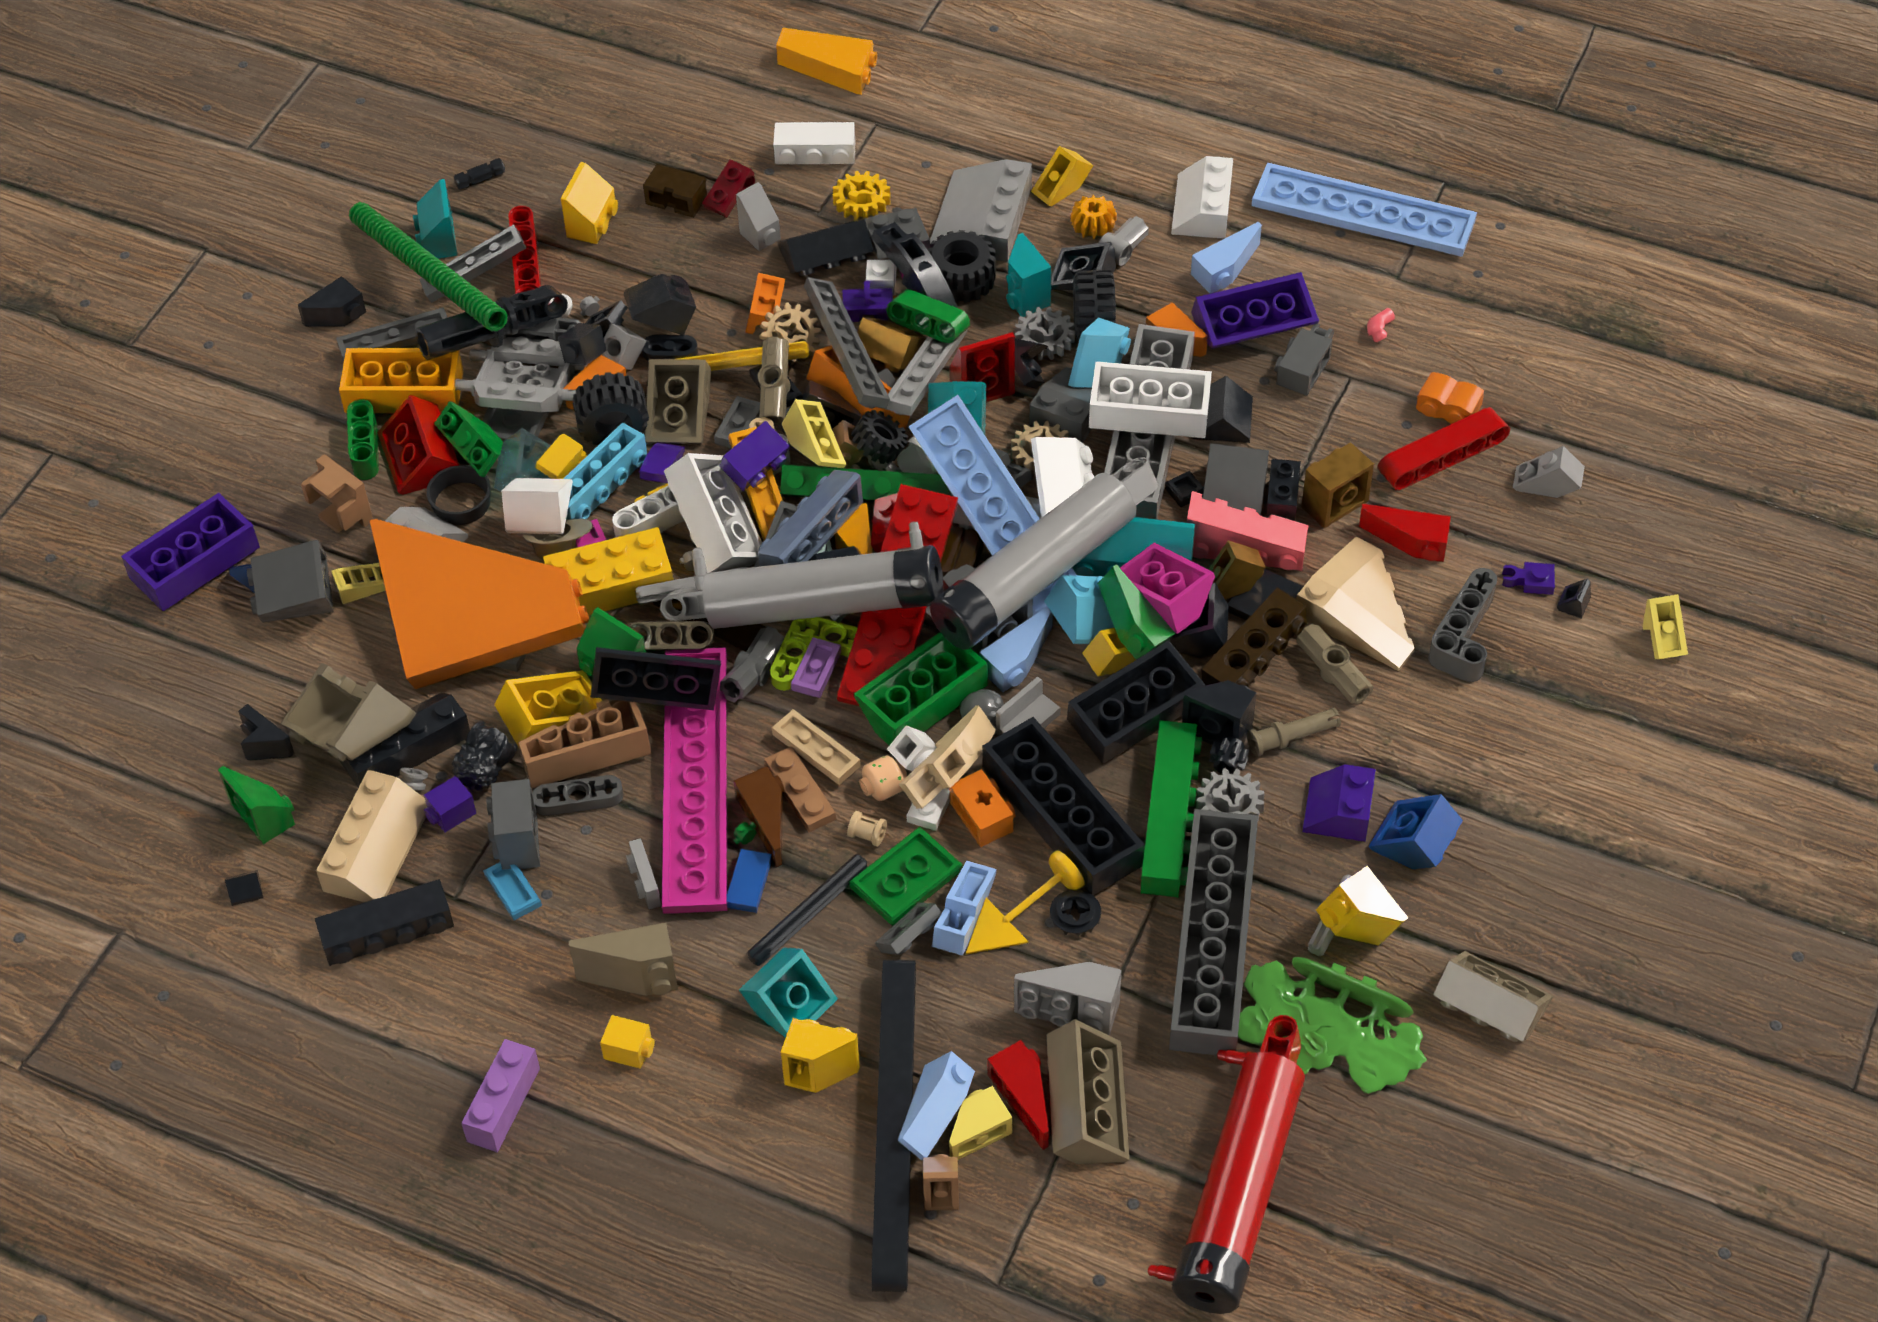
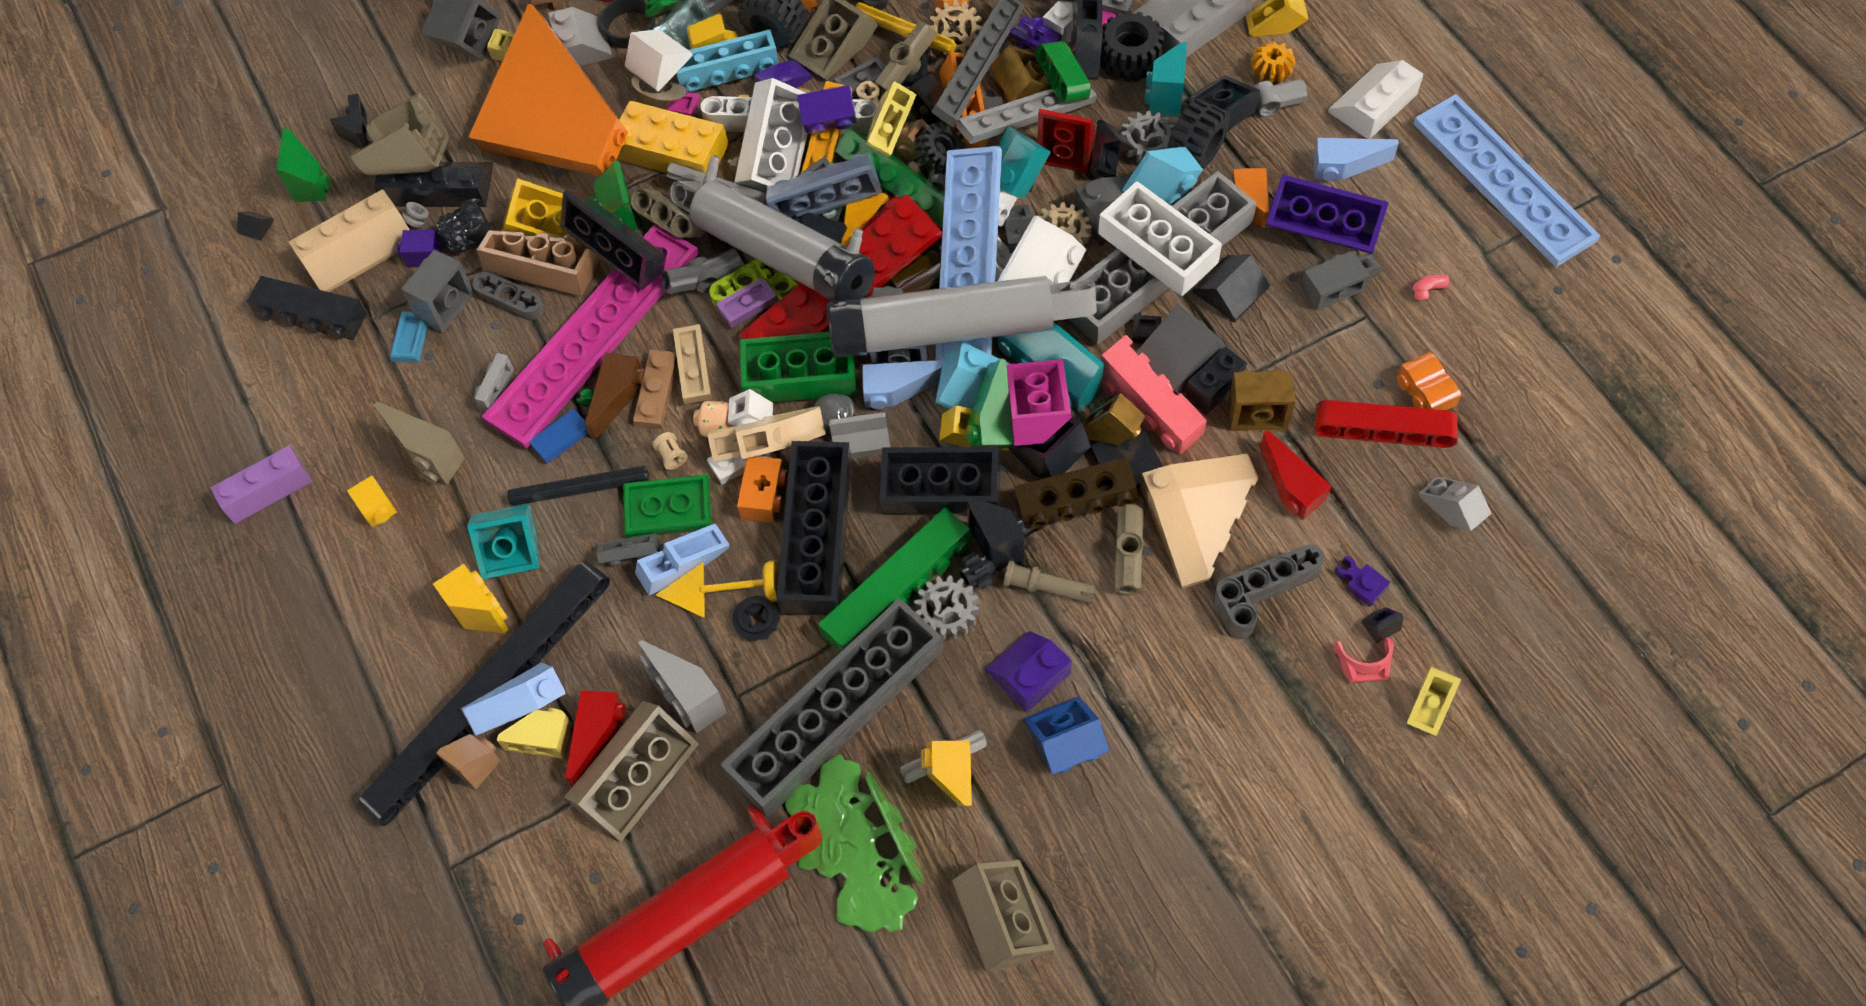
camera: 40 degrees right, 10 degrees up
(1591, 643) = (1365, 672): none -> coral helmet

